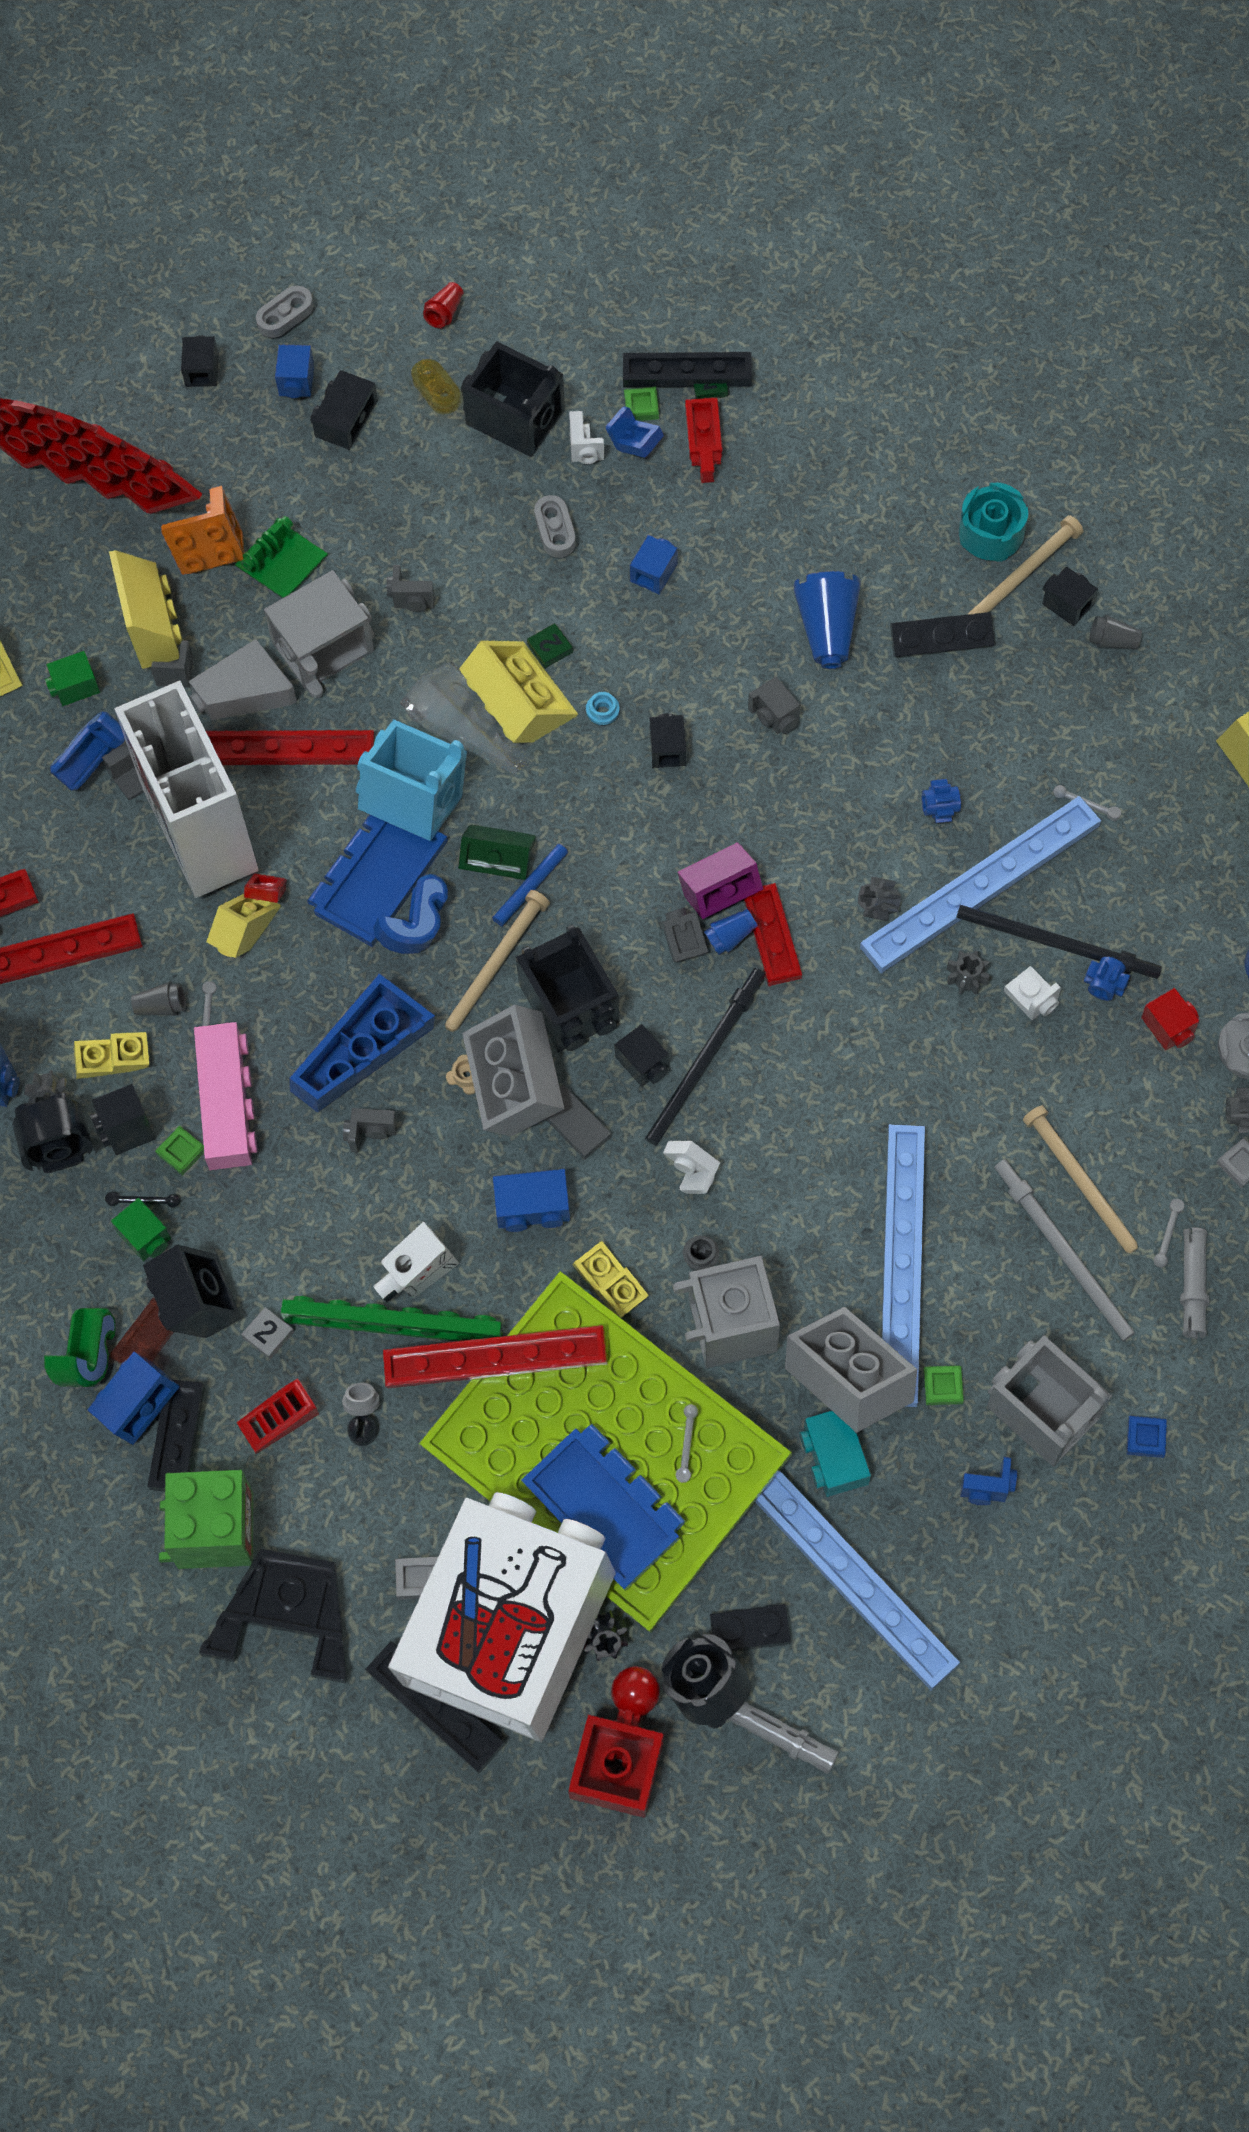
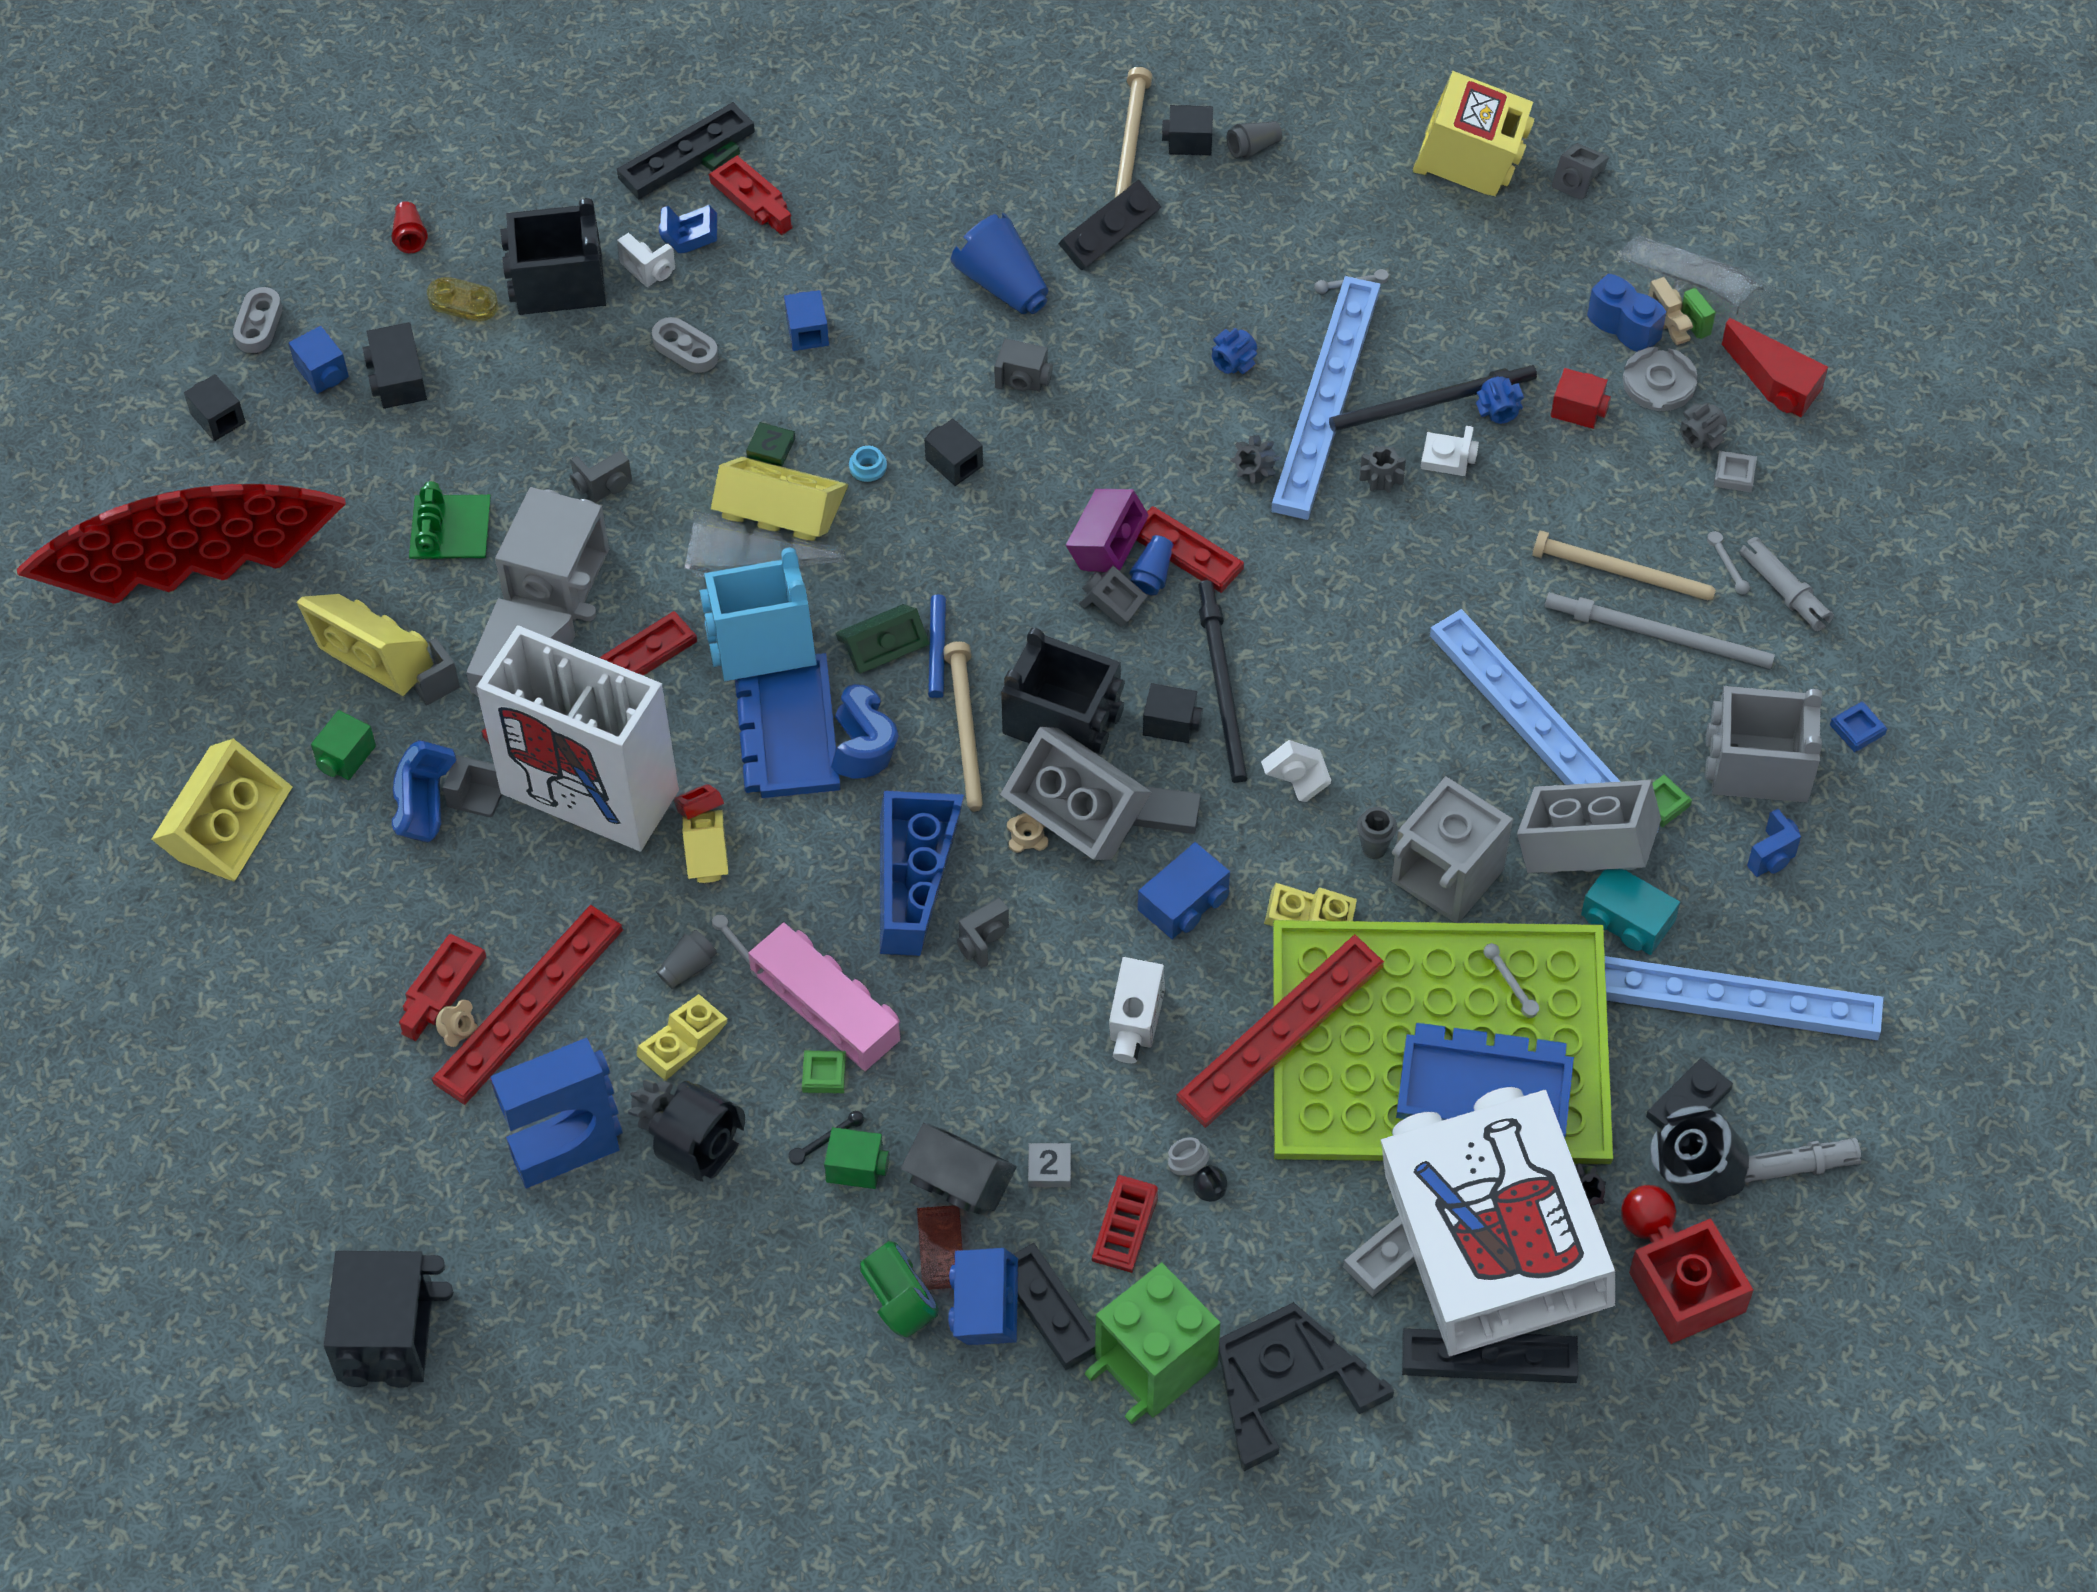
camera: 40 degrees left, 10 degrees down
(121, 1120) = (756, 1072): black brick -> none
(206, 538) = (371, 544): orange bracket -> none
(378, 1319) = (1146, 1079): green plate -> none
(642, 403) = (669, 196): bright green tile -> none
(993, 521) = (1074, 109): teal brick -> none

